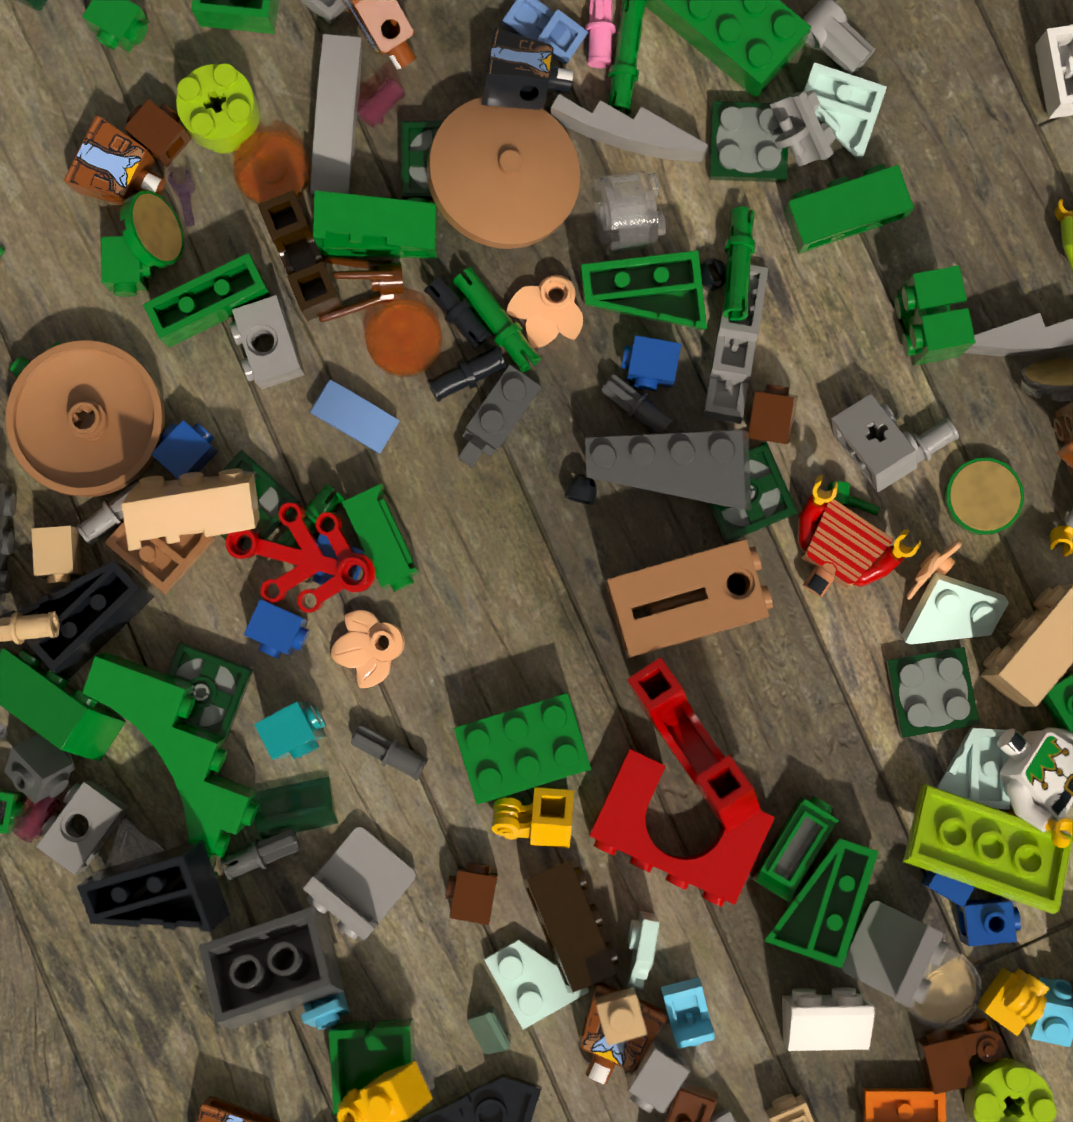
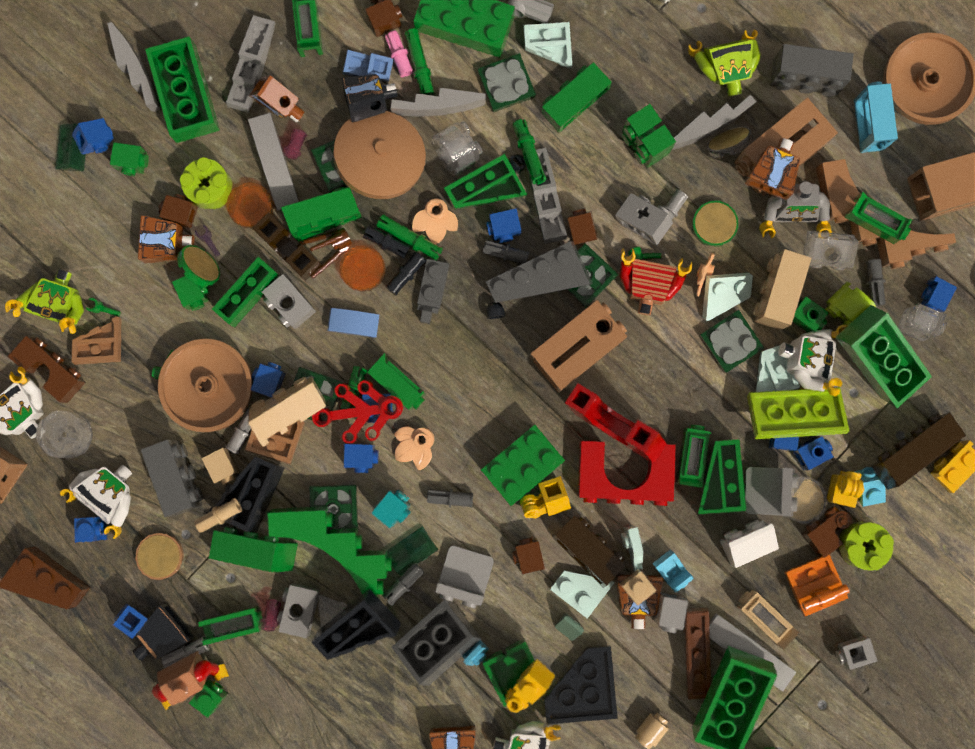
camera: 25 degrees left, 0 degrees up
(39, 768) = (261, 587): dark grey brick -> none
(801, 127) = (532, 63): light grey hips -> none

